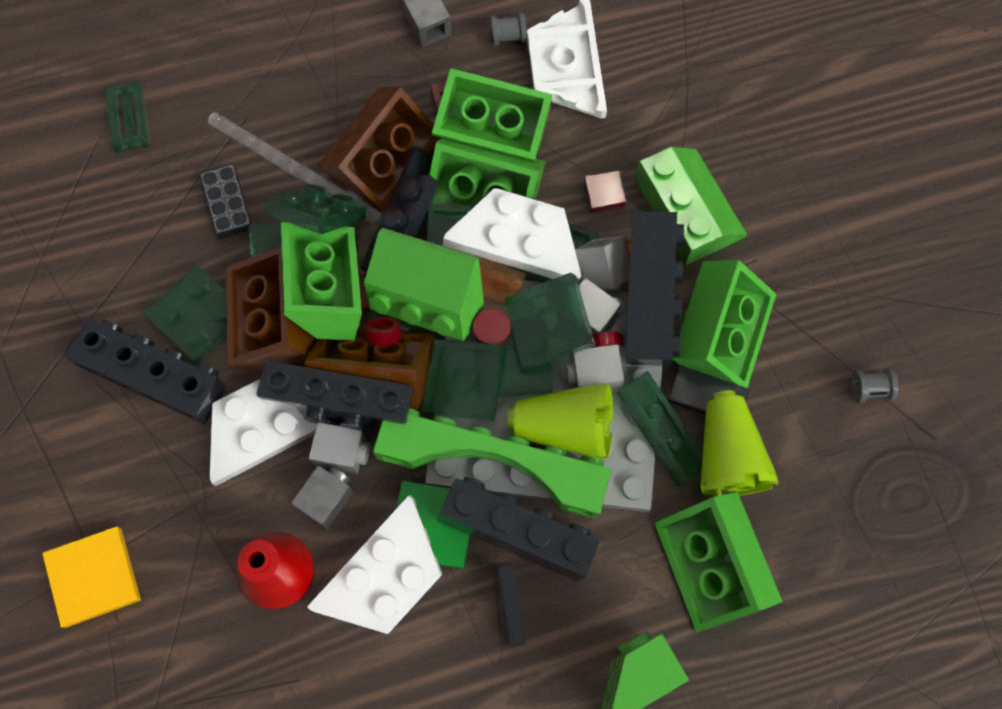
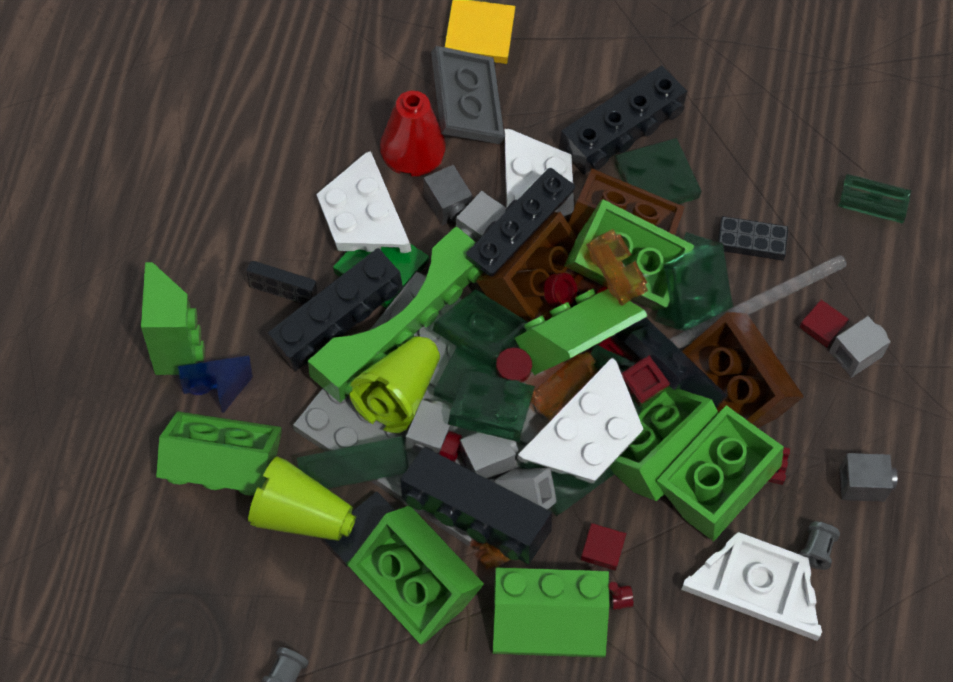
camera: 115 degrees right, 10 degrees down
(188, 541) = (467, 95): none -> dark grey tile
(288, 107) = (824, 323): none -> dark red tile
(300, 65) = (860, 346): none -> light grey brick
(343, 278) = (622, 281): none -> clear orange hinge
(445, 207) = (644, 380): none -> dark red tile
(640, 153) = (621, 596): none -> dark red hand
(640, 599) = (226, 375): none -> clear blue slope

